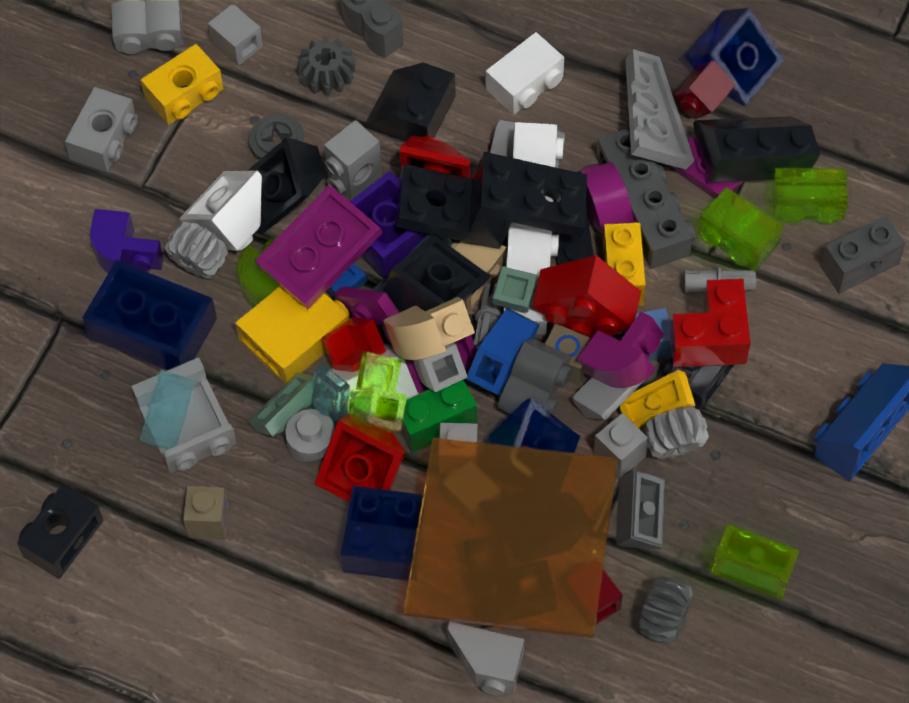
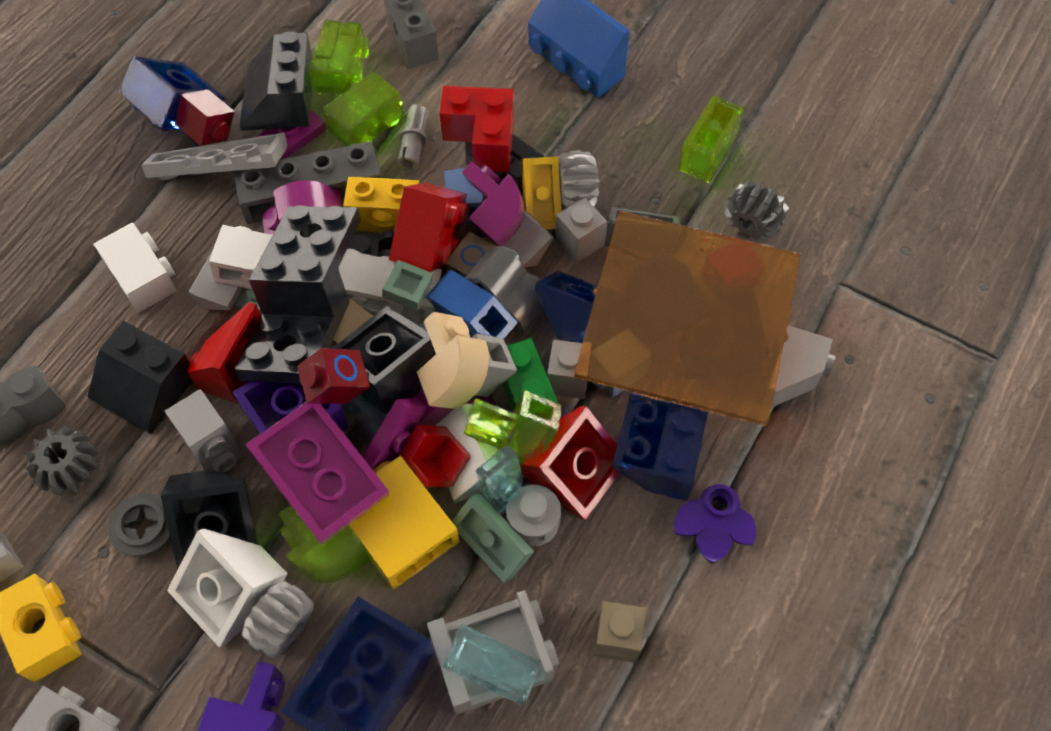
camera: 85 degrees left, 0 degrees up
(315, 593) = (715, 528): none -> dark purple plate
(395, 234) = (333, 376): none -> dark red brick

